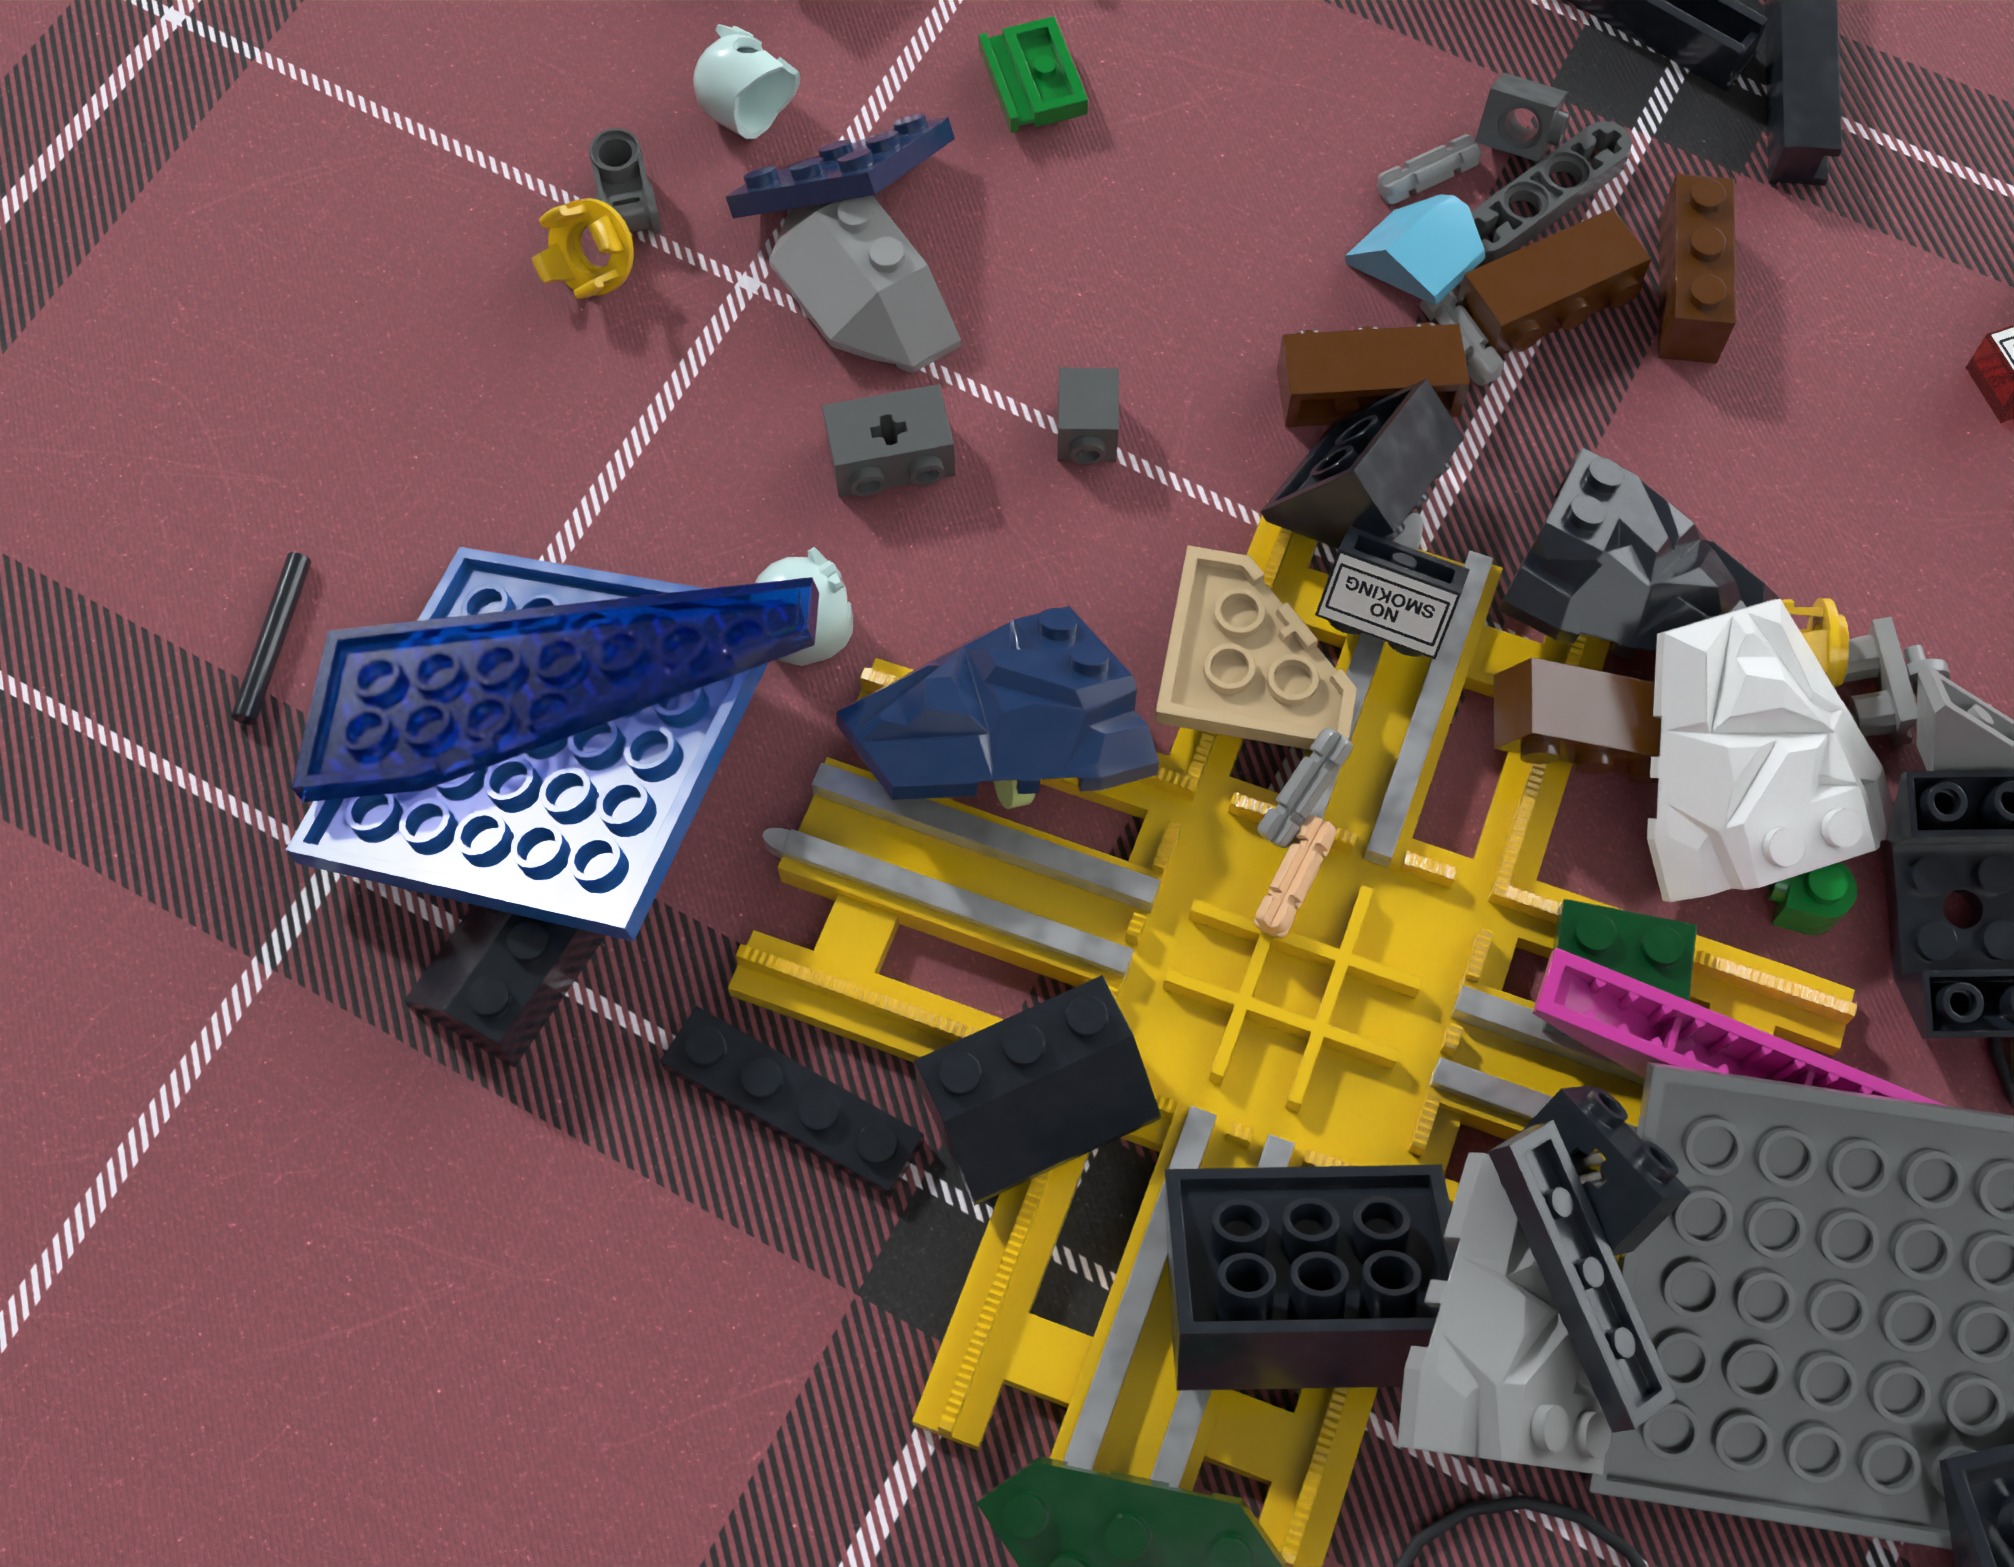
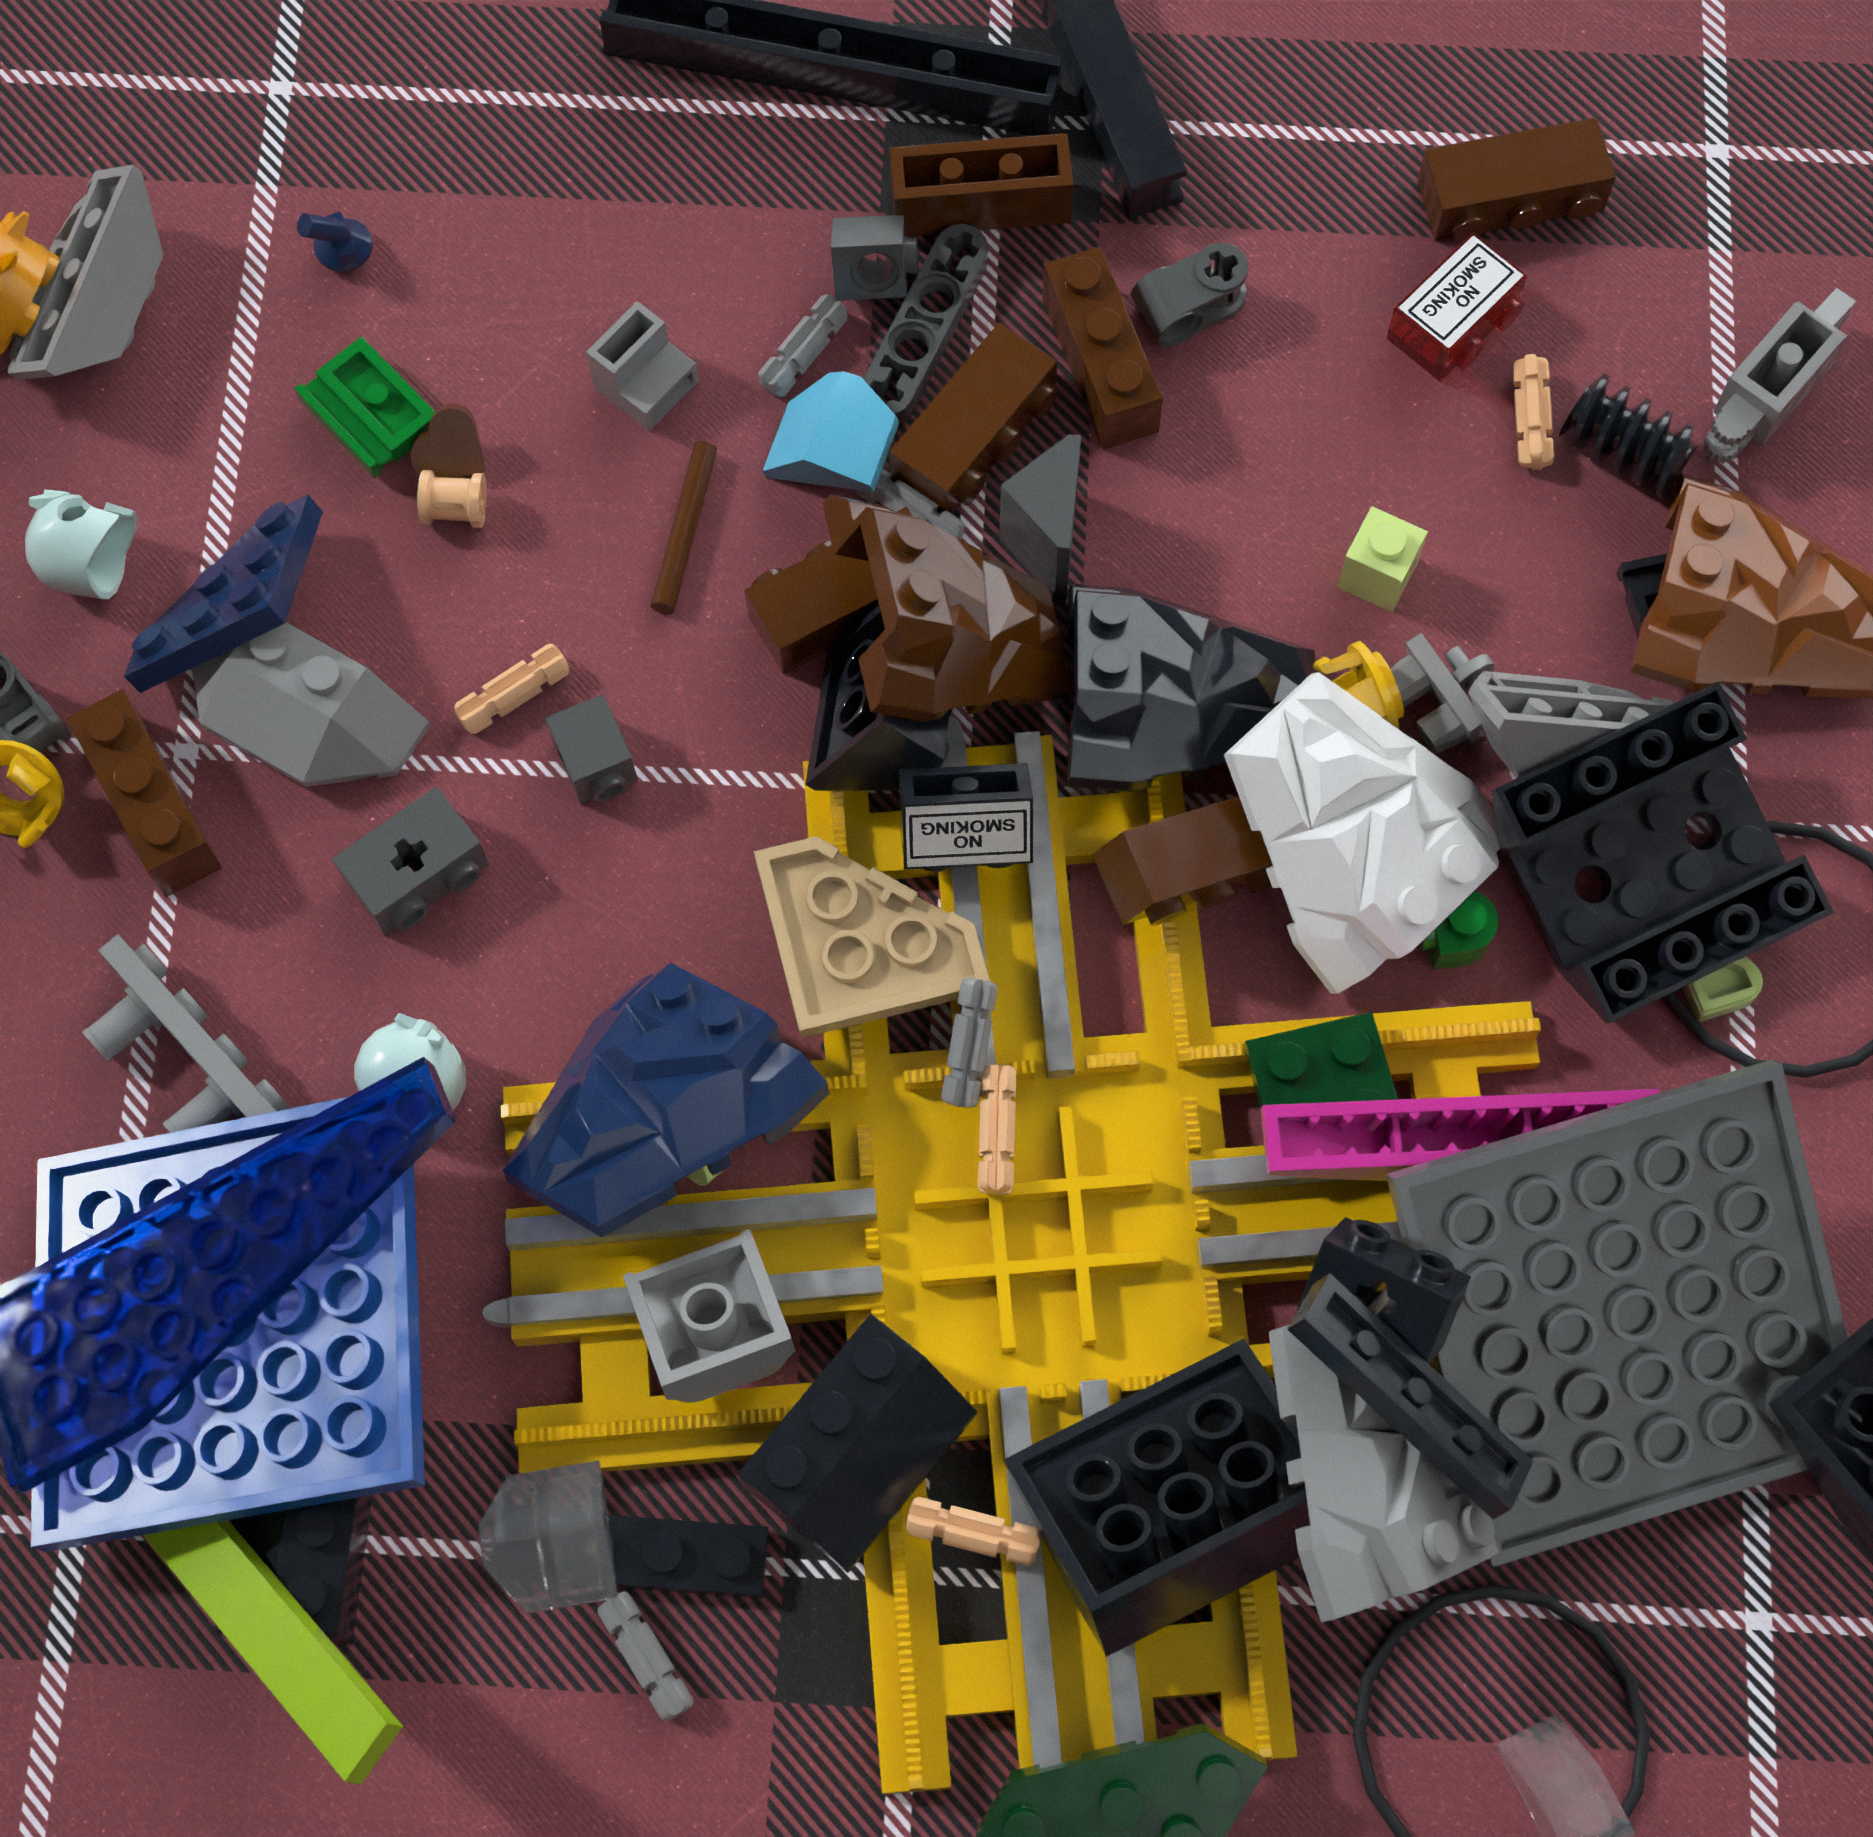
camera: 25 degrees left, 5 degrees up
(445, 1026) = (281, 1645): none -> lime tile
(616, 464) = (152, 1003): none -> light grey plate
(695, 295) = (144, 793): none -> reddish brown brick
(726, 1051) = (551, 1538): none -> clear slope
(760, 1197) = (645, 1656): none -> light grey axle
(956, 923) = (711, 1320): none -> light grey slope
(1044, 341) = (511, 688): none -> light nougat axle
(1067, 171) = (452, 499): none -> light nougat bush
(1086, 129) = (450, 445): none -> reddish brown tile
(1106, 1220) = (973, 1531): none -> light nougat axle
(1254, 273) = (684, 527): none -> reddish brown bar
(1278, 128) = (640, 367): none -> light grey piece
(1453, 420) = (952, 619): none -> reddish brown wedge
(1580, 376) = (1040, 514): none -> dark grey slope
(1651, 94) = (983, 183): none -> reddish brown brick
(1797, 261) = (1190, 295): none -> dark grey piece
(1880, 543) = (1382, 559): none -> yellowish green brick

